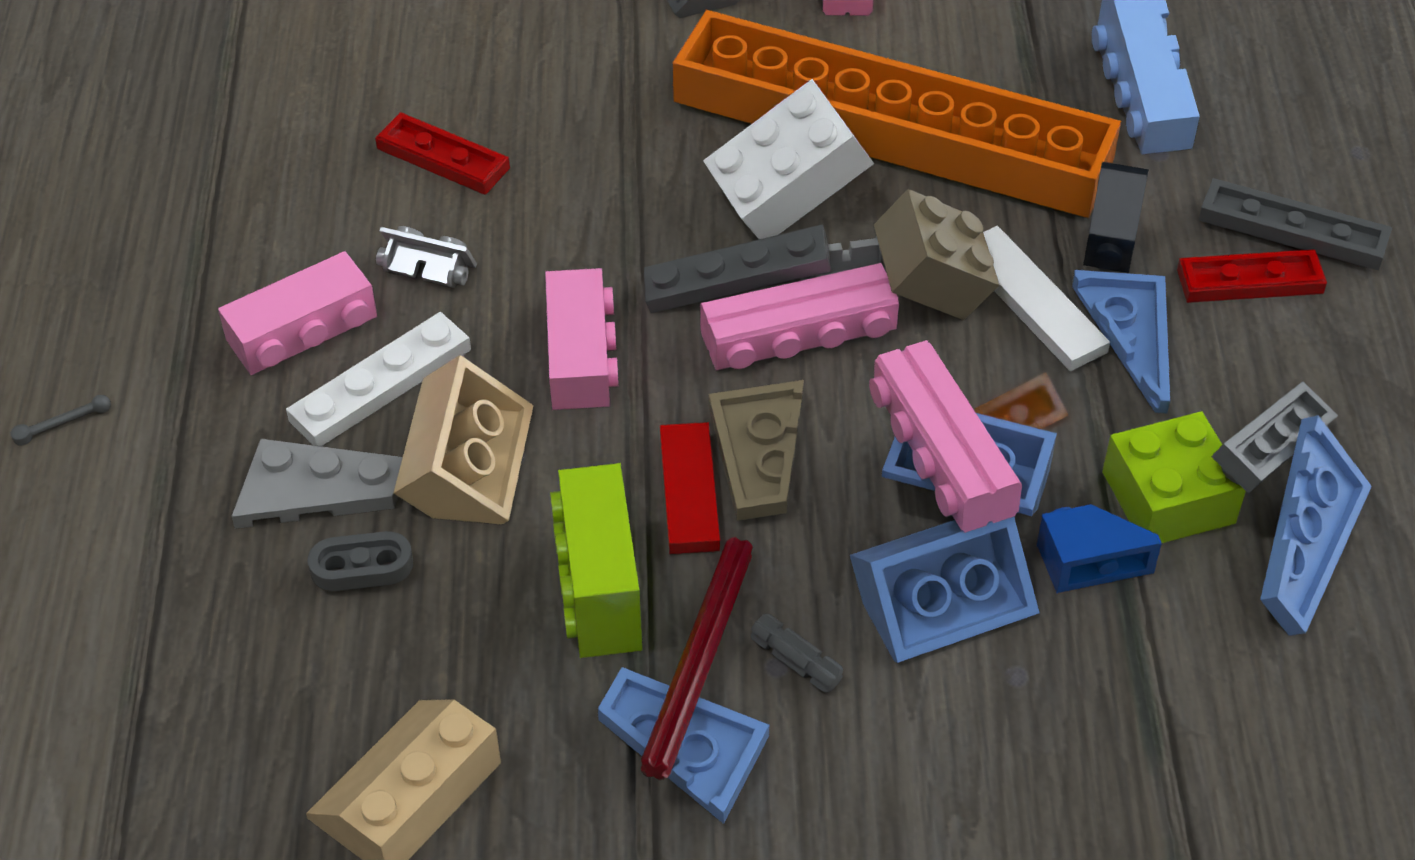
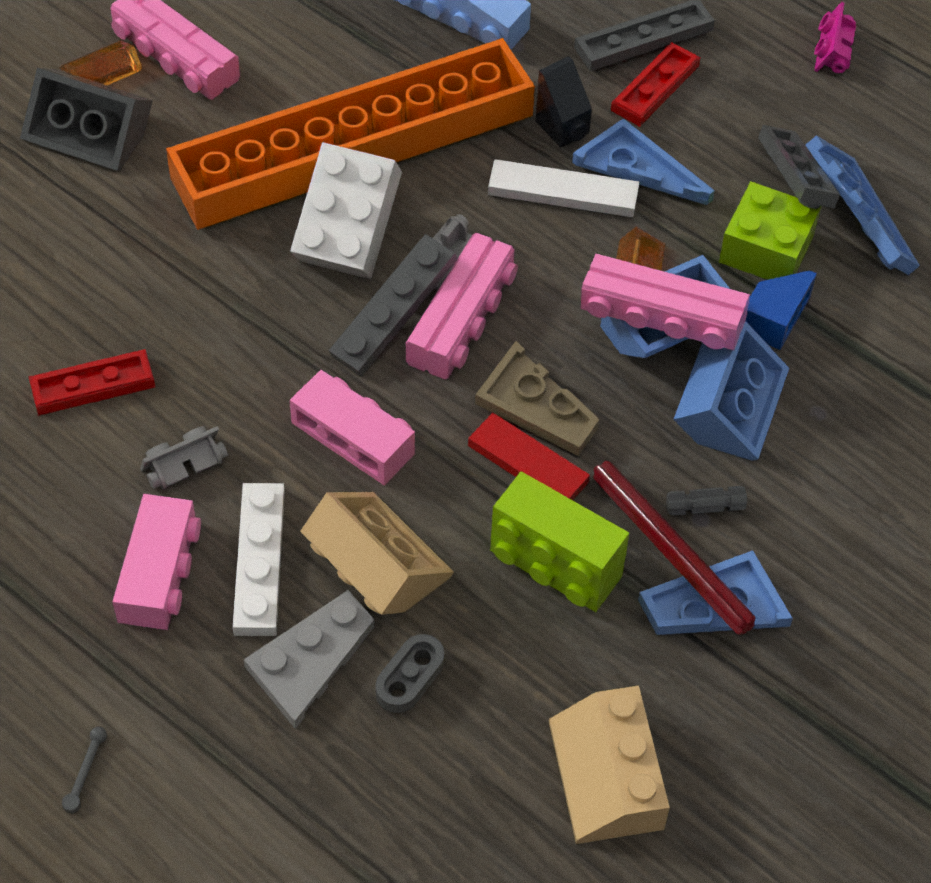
camera: 50 degrees left, 5 degrees up
(936, 254) = (500, 201): dark tan brick -> none

